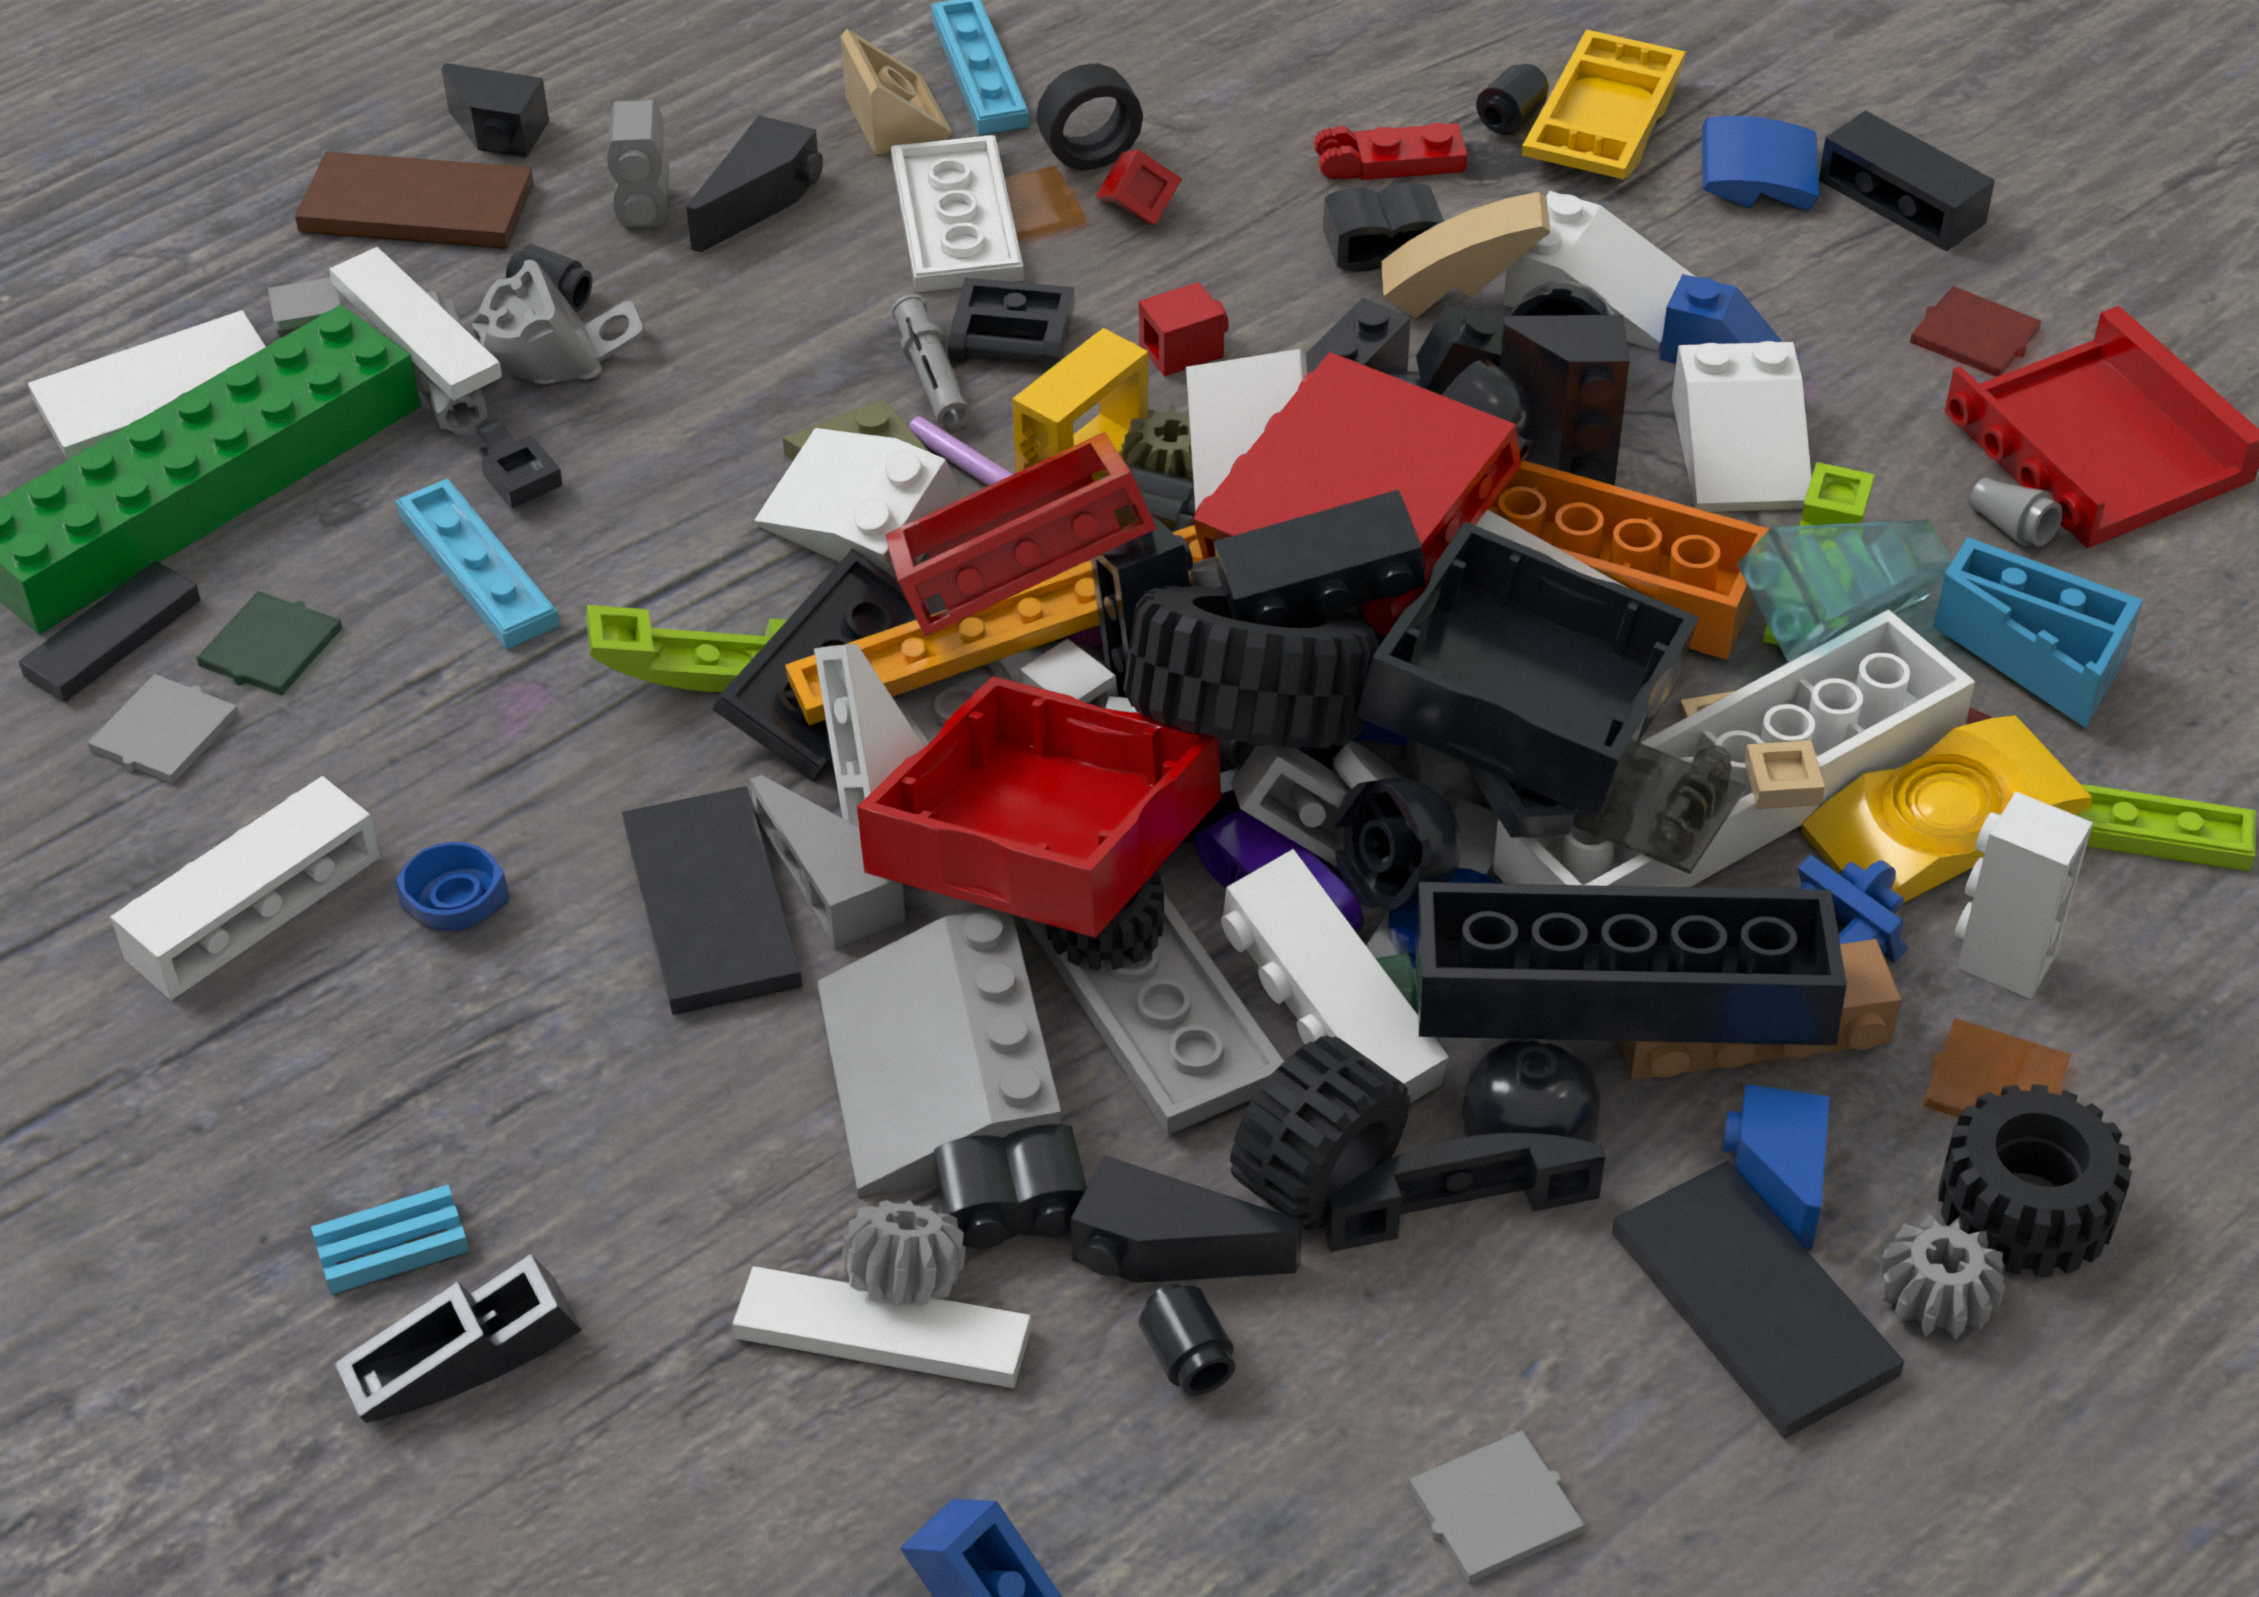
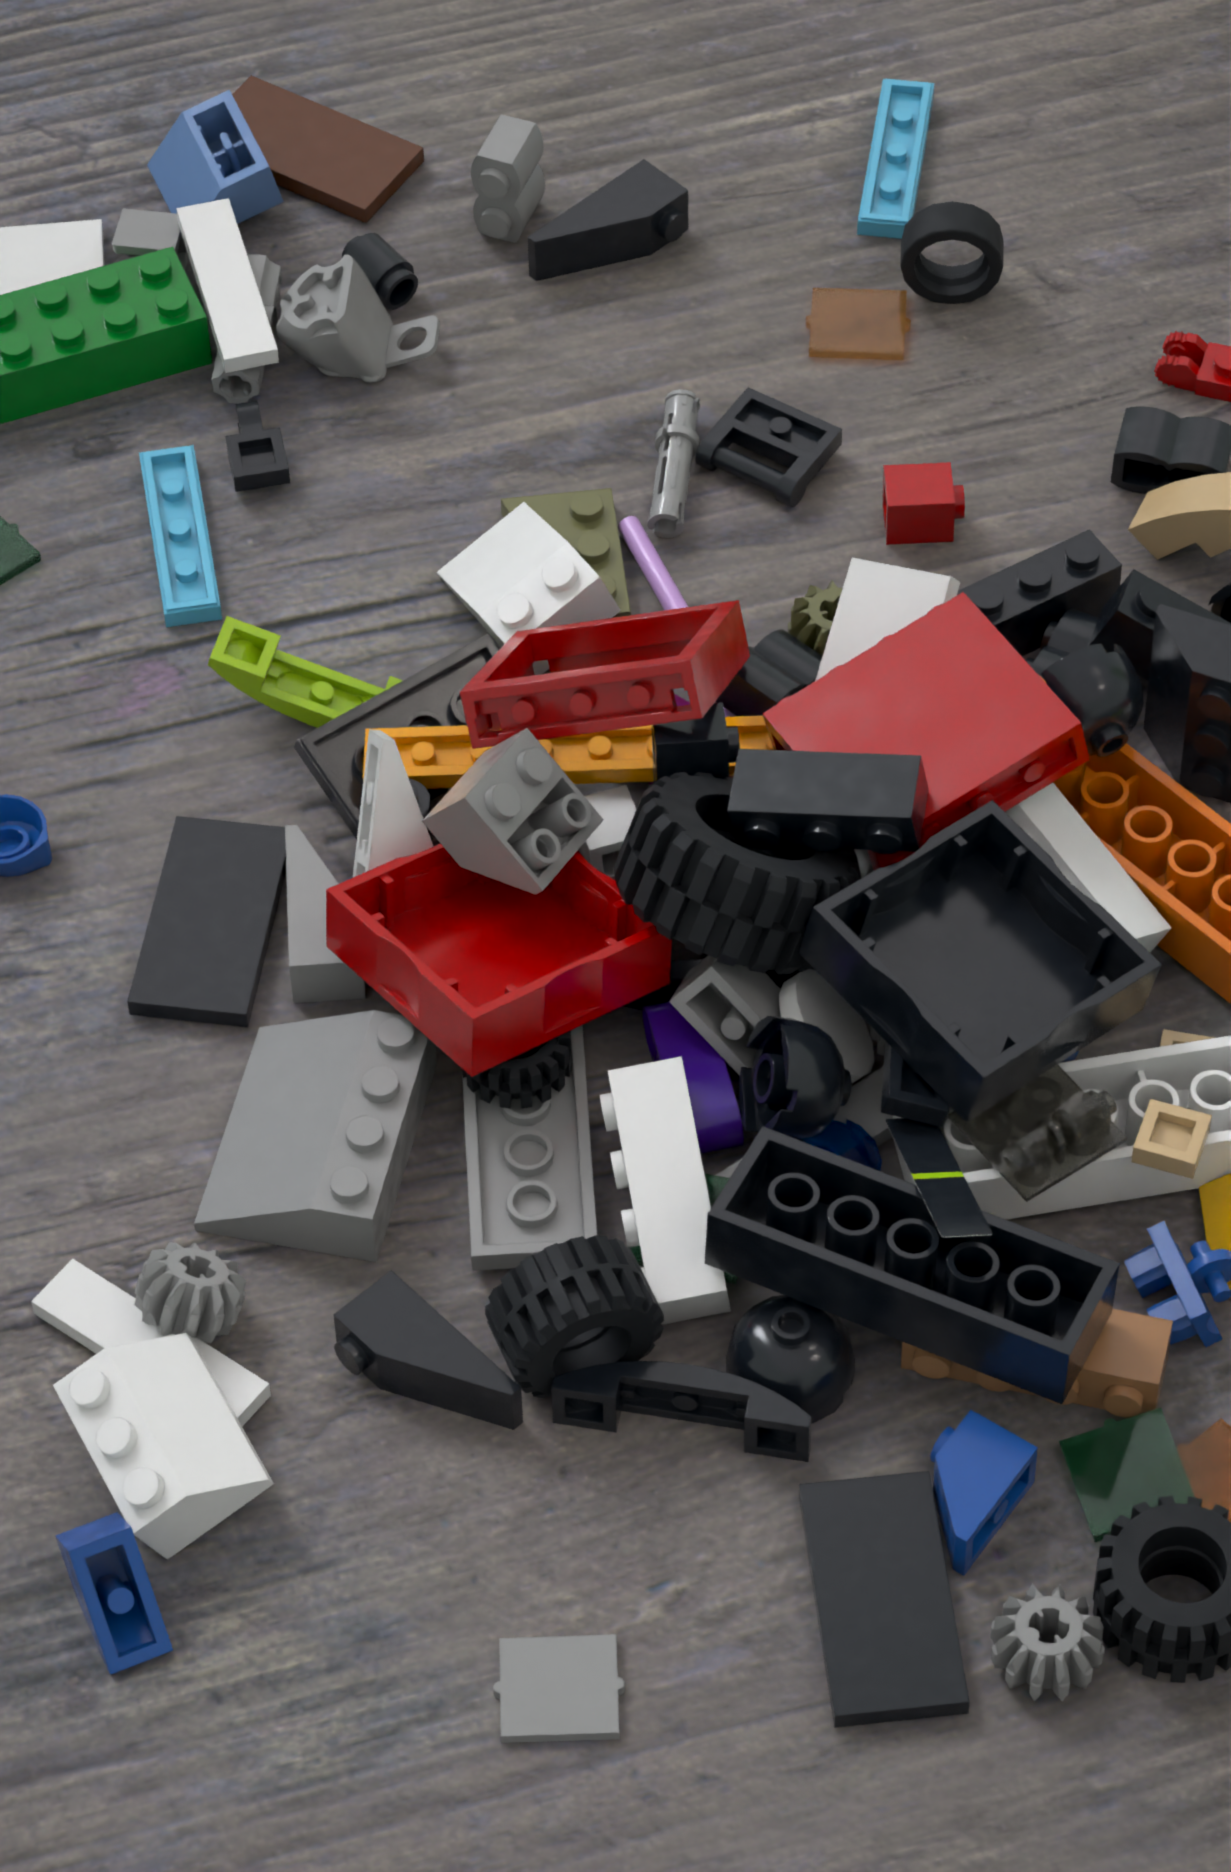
camera: 25 degrees right, 5 degrees up
(334, 217) = (212, 159): none -> medium blue slope
(496, 108) = (425, 76): black slope -> none
(888, 97) = (788, 172): tan slope -> none
(956, 213) = (785, 313): white tile -> none
(961, 1404) = (163, 1439): none -> white slope
(1003, 681) = (514, 815): none -> light grey slope
(1011, 1183) = (309, 1264): black brick -> none
(1100, 371) = (759, 539): yellow window -> none
(1139, 186) = (964, 341): red panel -> none
(1187, 1339) = (382, 1452): black brick -> none
(1614, 873) = (938, 1178): none -> black sticker
(1904, 1097) = (1124, 1467): none -> clear green piece

